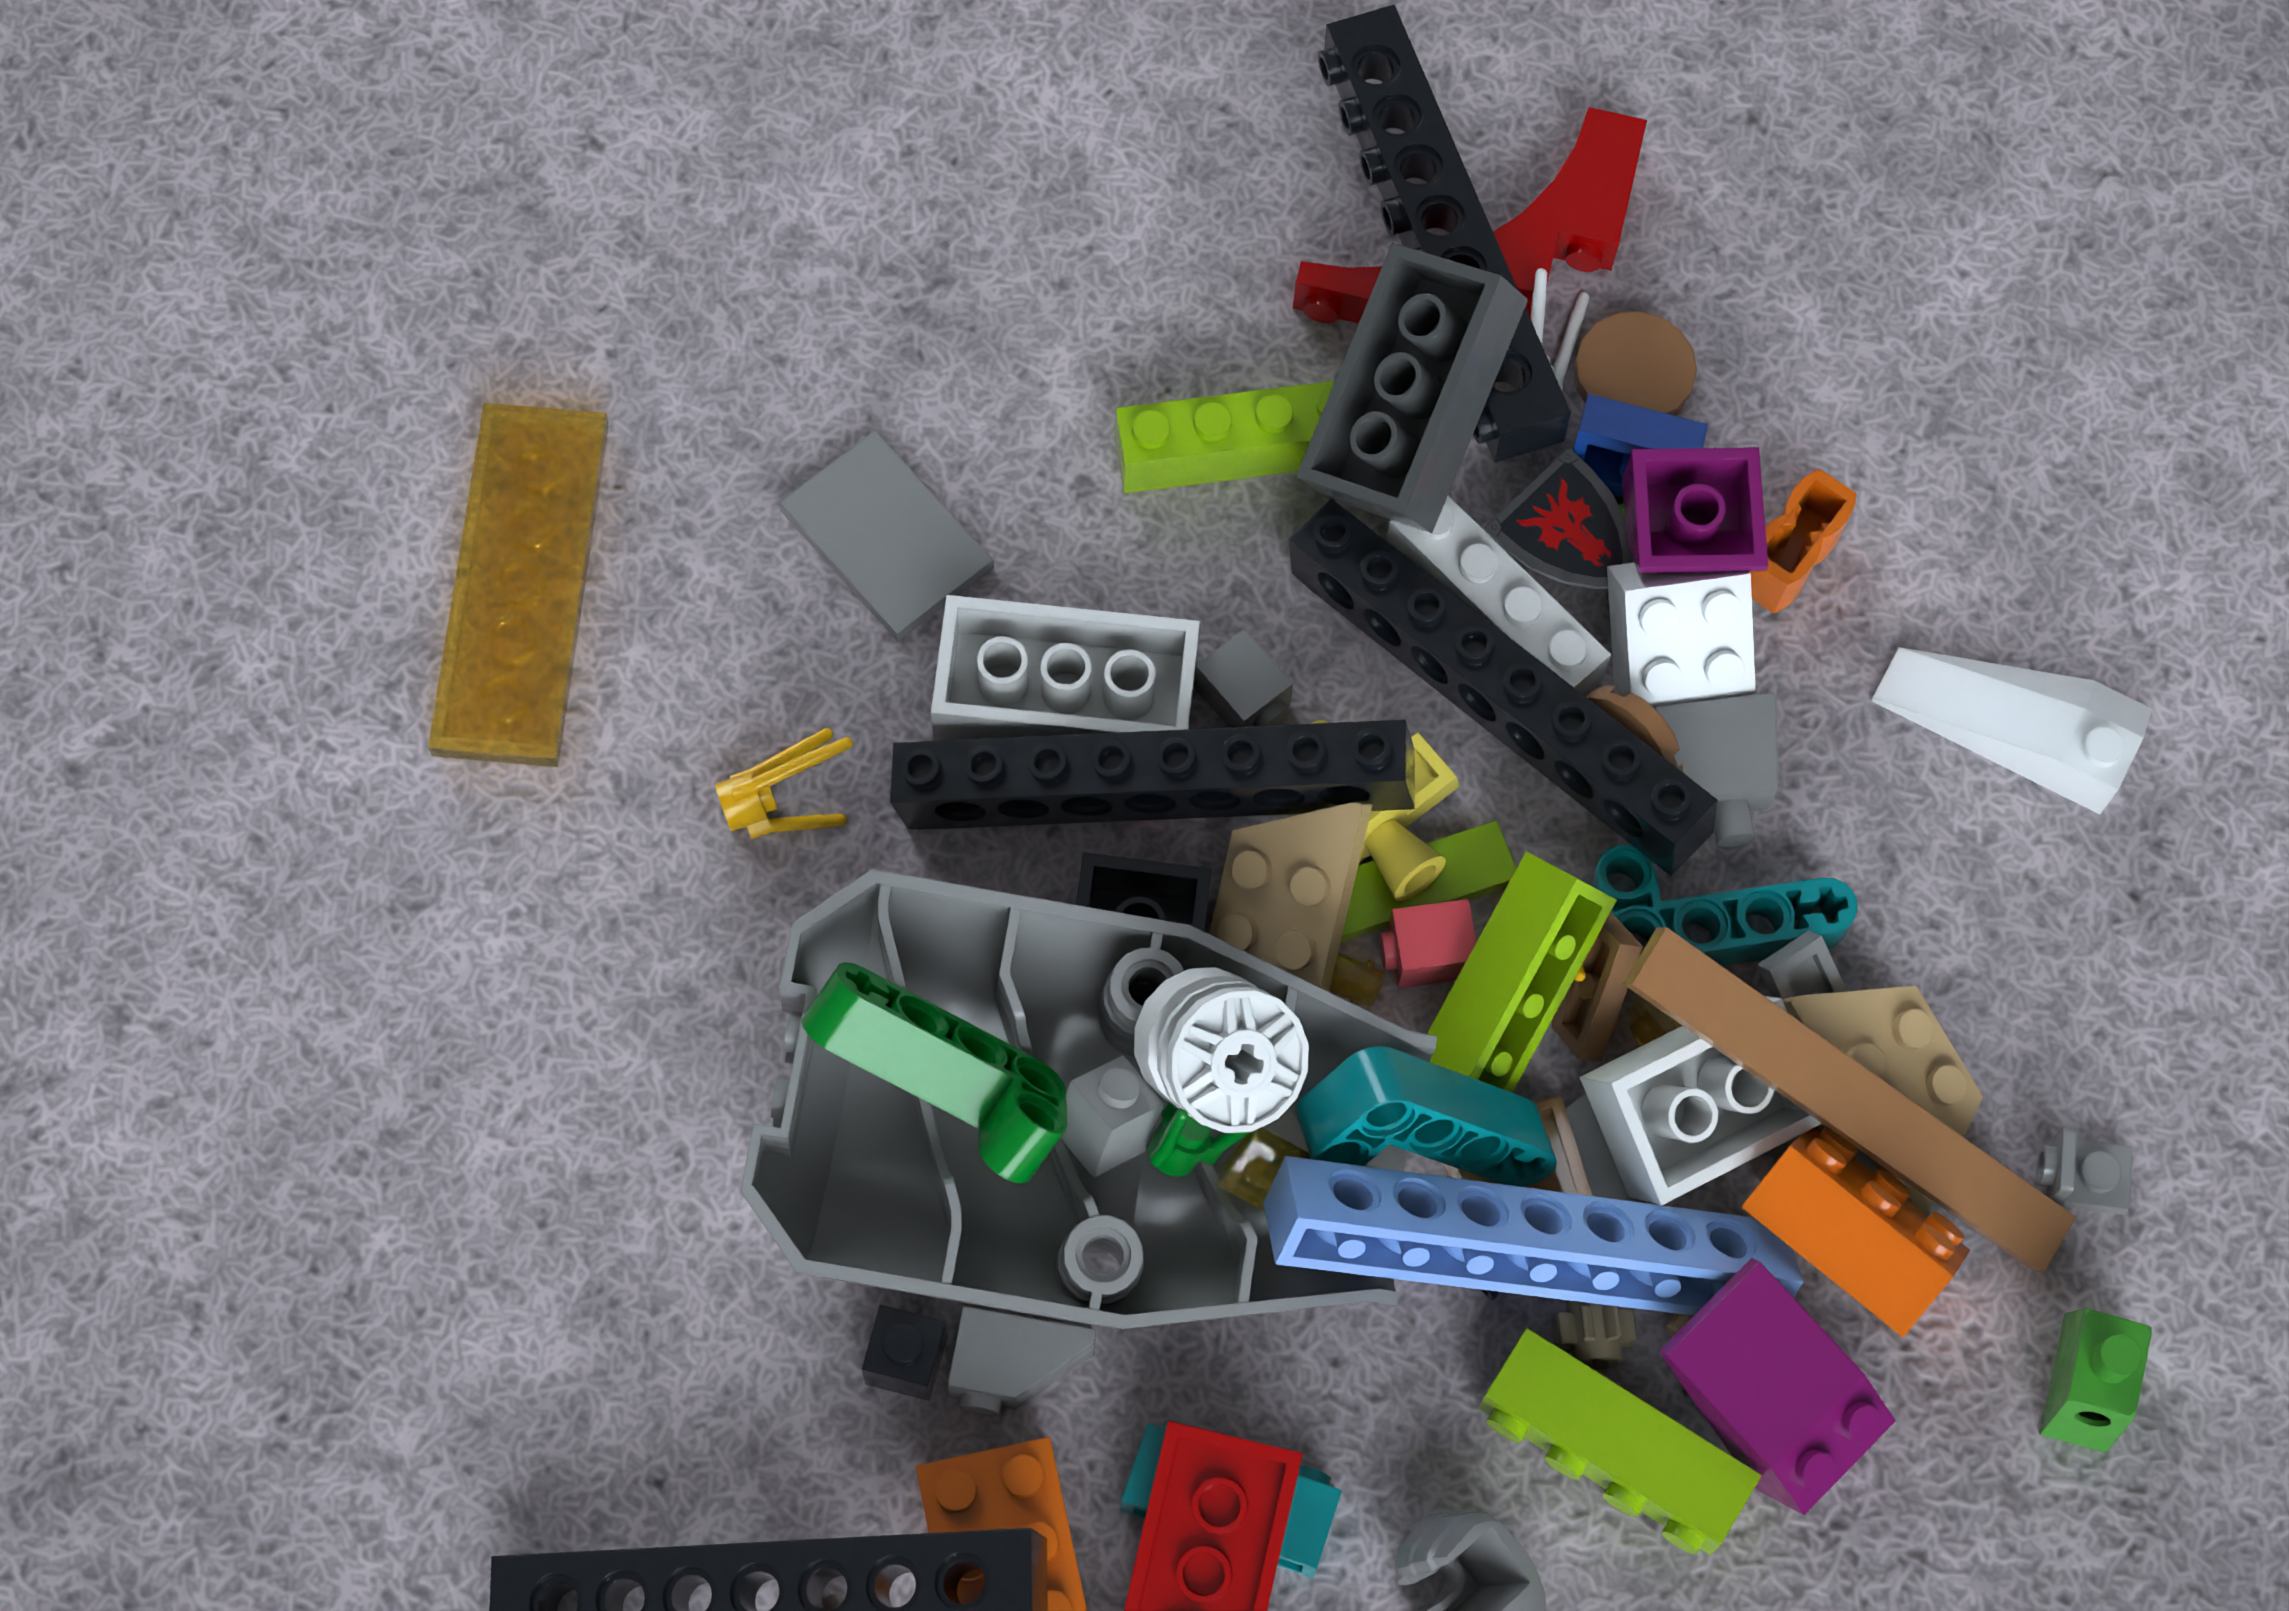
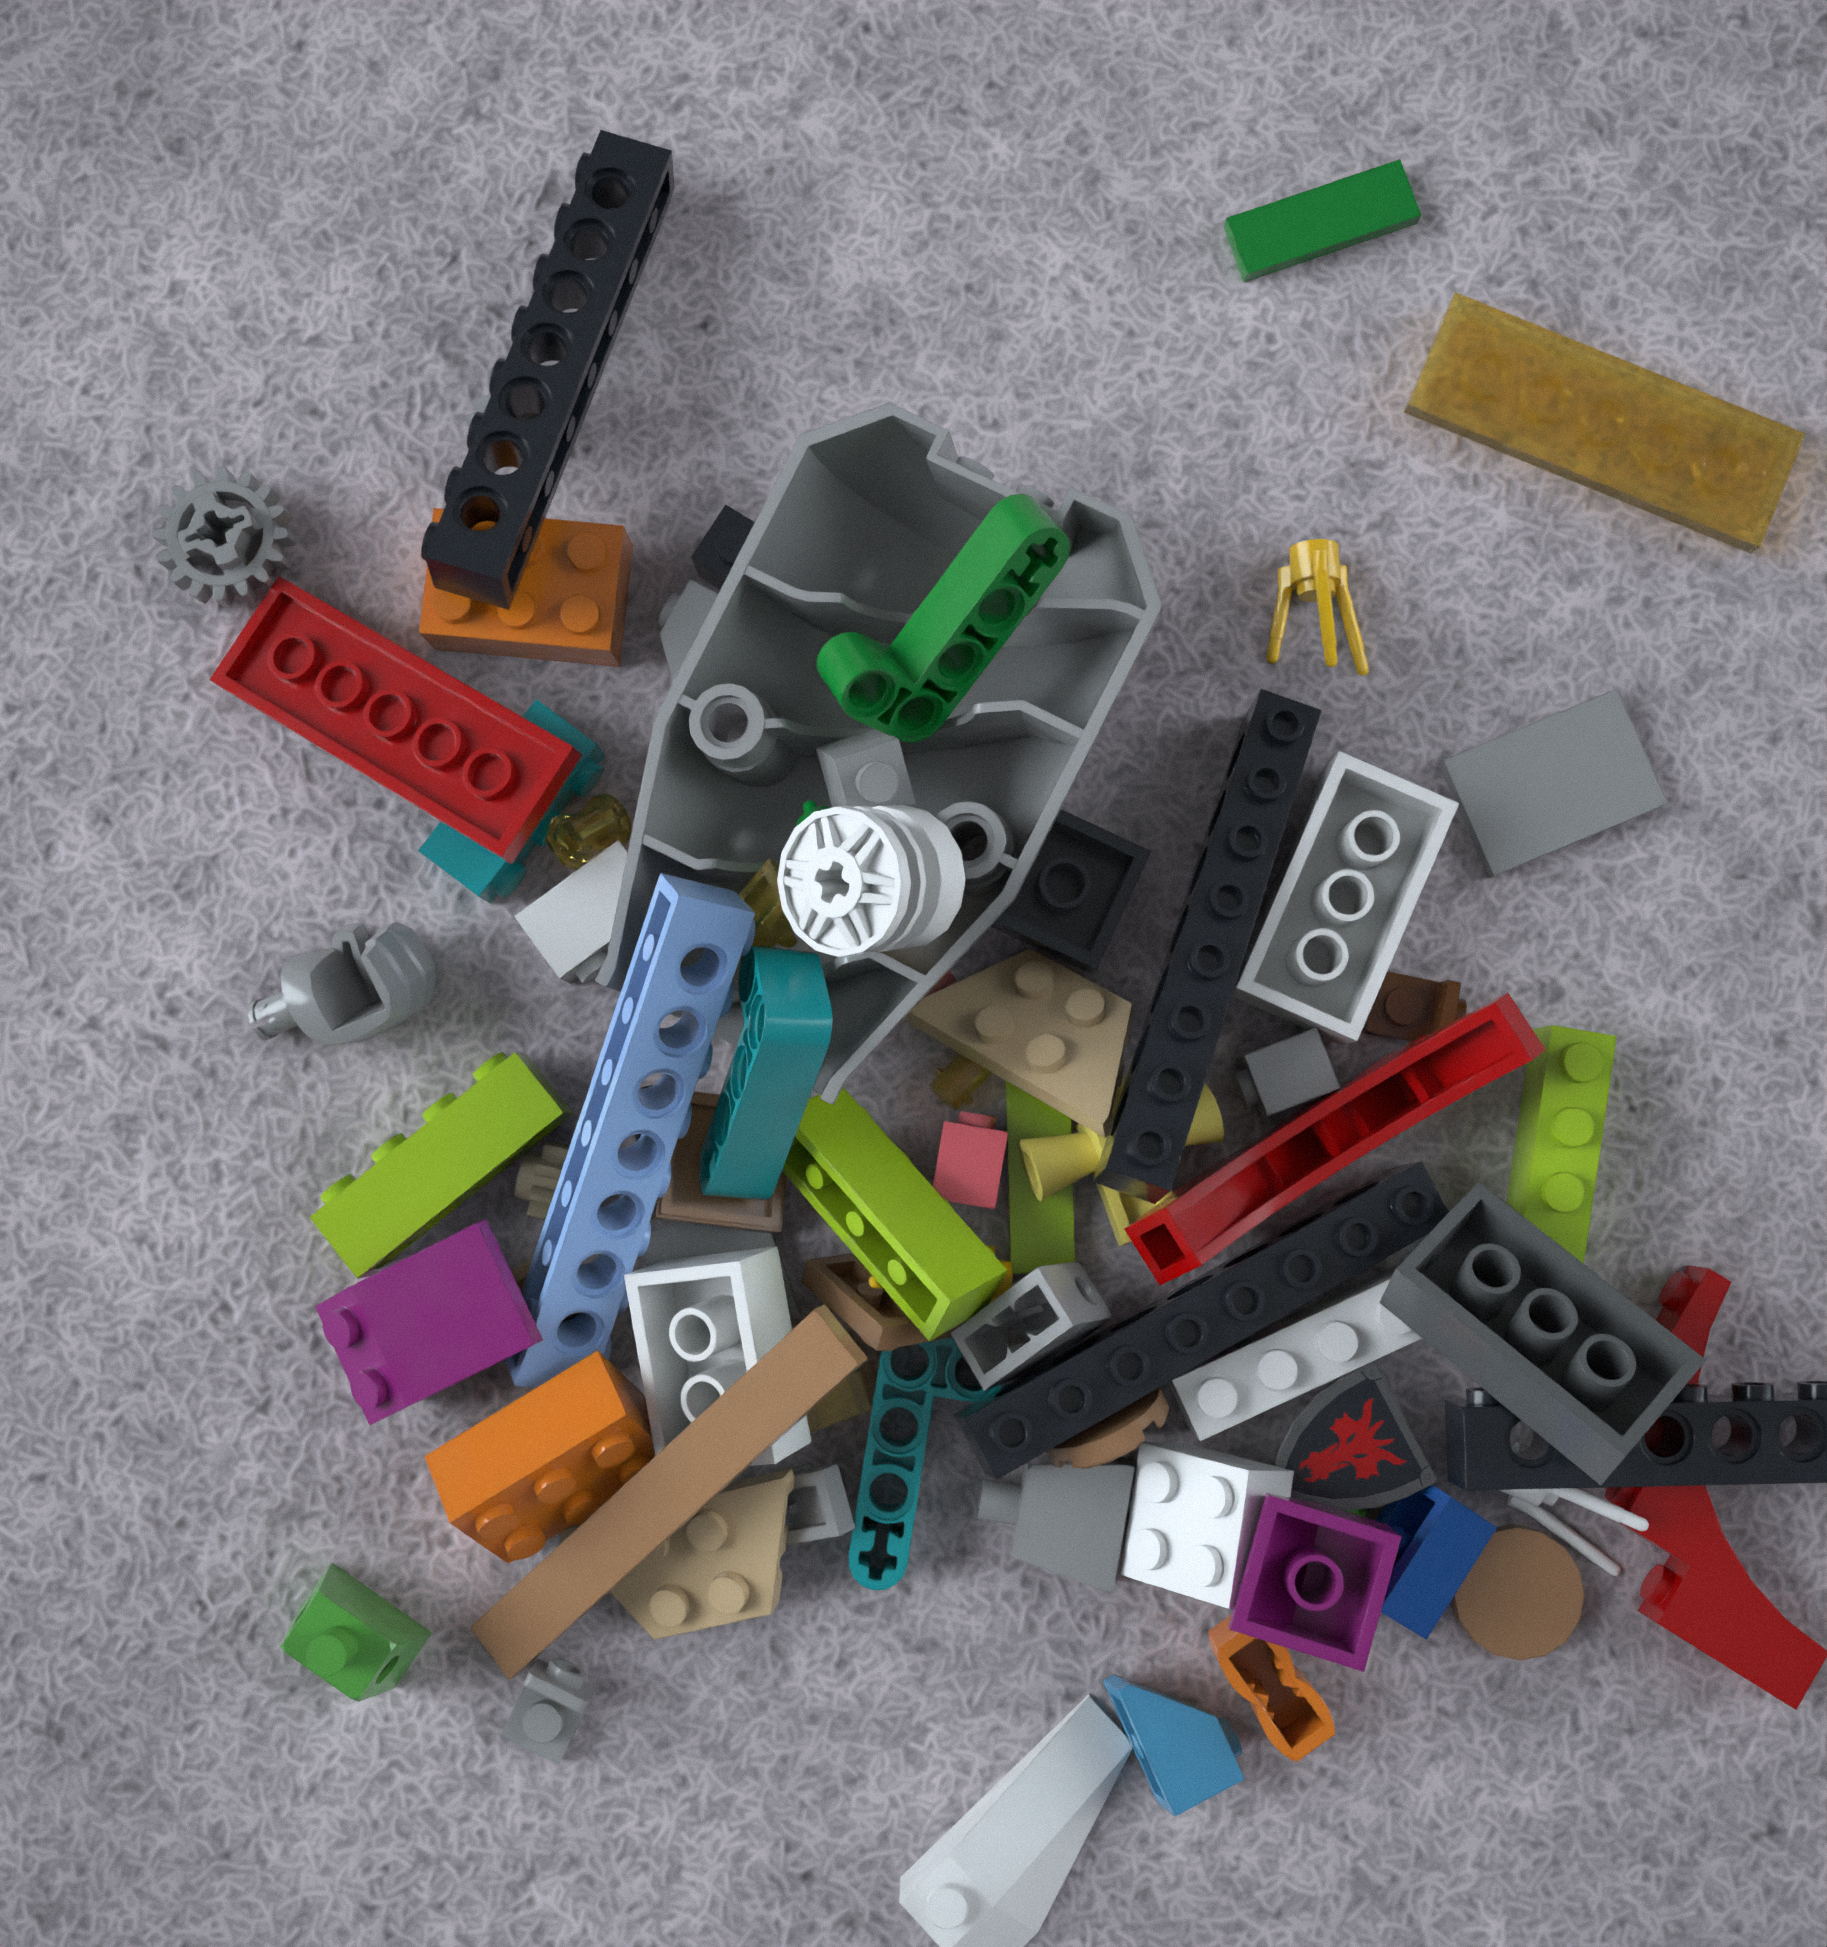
camera: 115 degrees right, 15 degrees up
(380, 898) = (1322, 220): none -> green tile
(1142, 581) = (1413, 1007): none -> reddish brown bracket
(1226, 1405) = (588, 831): none -> clear yellow bush
(1242, 588) = (1330, 1135): none -> red arch
(1316, 1379) = (577, 916): none -> white brick
(1554, 817) = (1048, 1307): none -> light grey torso
(1884, 606) = (1178, 1744): none -> dark azure slope

